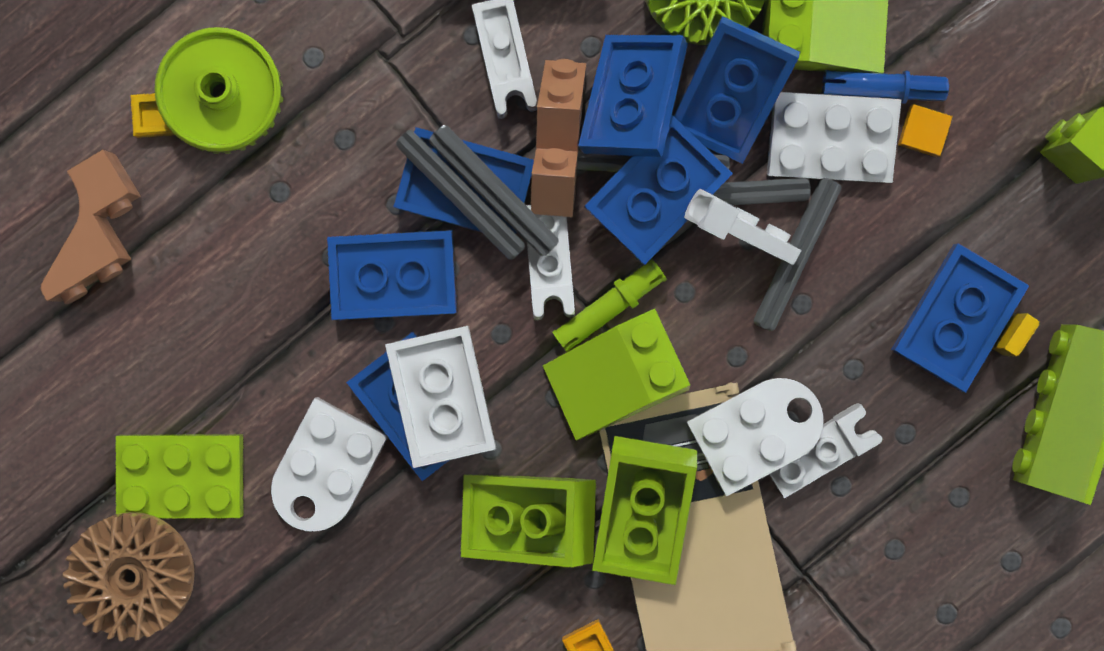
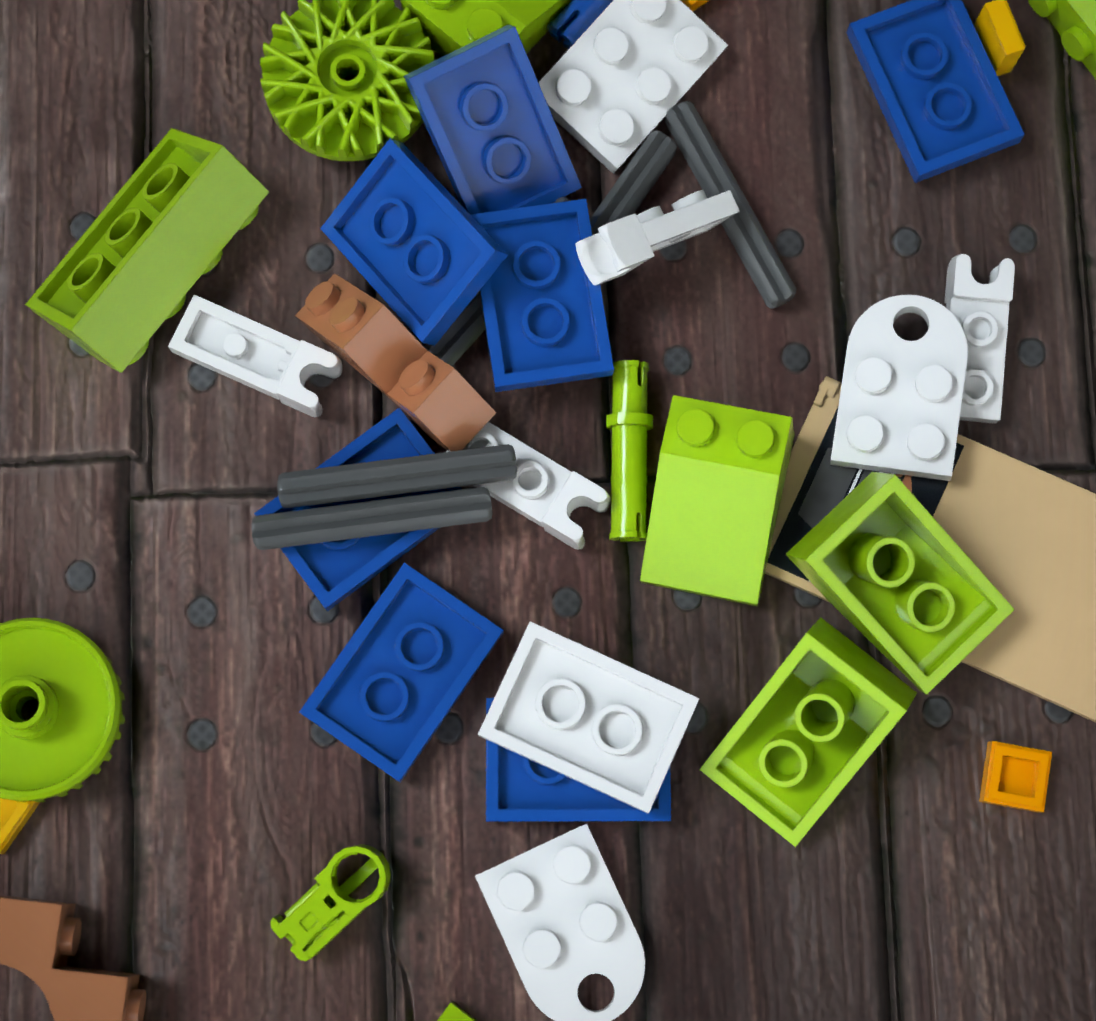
camera: 60 degrees left, 10 degrees down
(239, 331) = (327, 907): none -> lime piece

